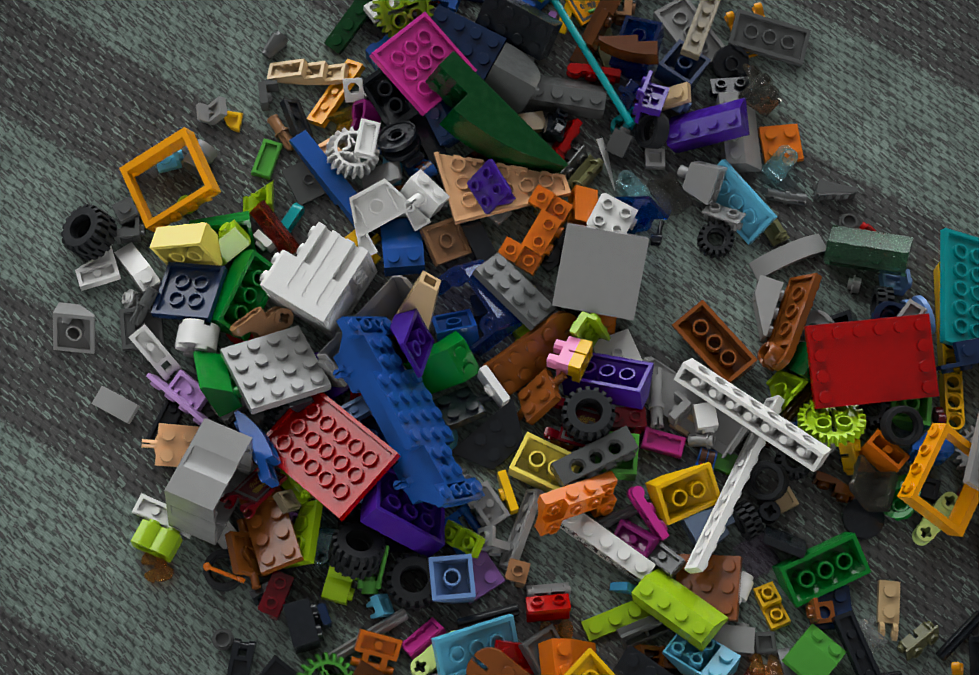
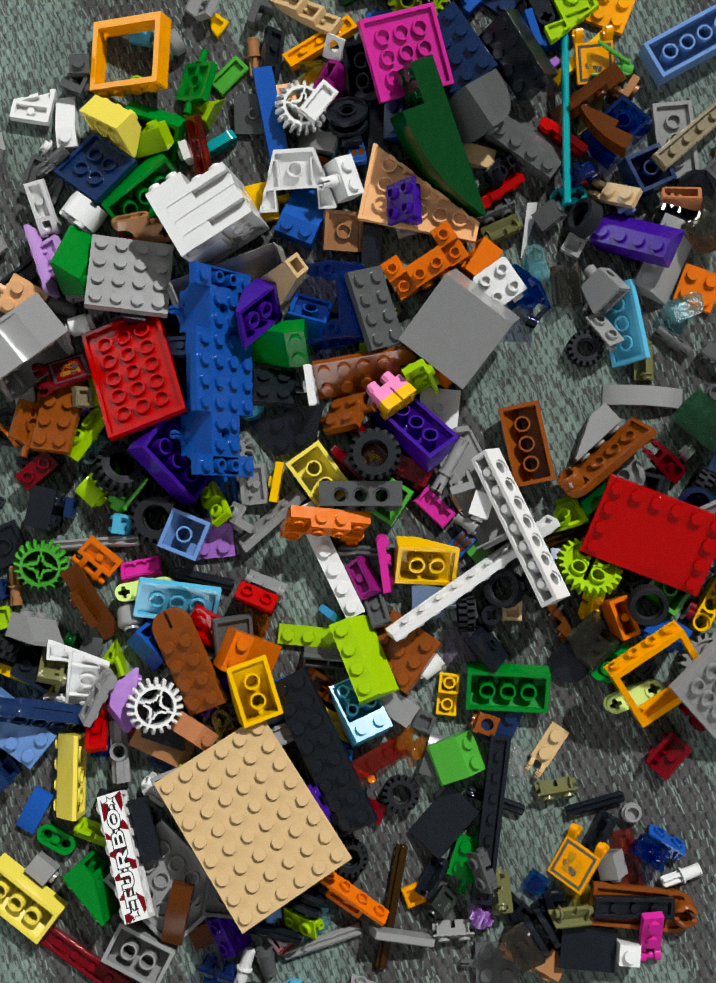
camera: 40 degrees right, 15 degrees up
(89, 232) = (38, 70): black tyre -> none
(242, 176) = (196, 82): none -> green plate
(263, 452) = (82, 347): blue slope -> none
(517, 572) = (246, 555): medium nougat bracket -> none
(650, 98) = (596, 187): dark purple bracket -> none
(725, 73) = (682, 197): none -> nougat slope
(841, 298) = (665, 462): none -> dark red hinge

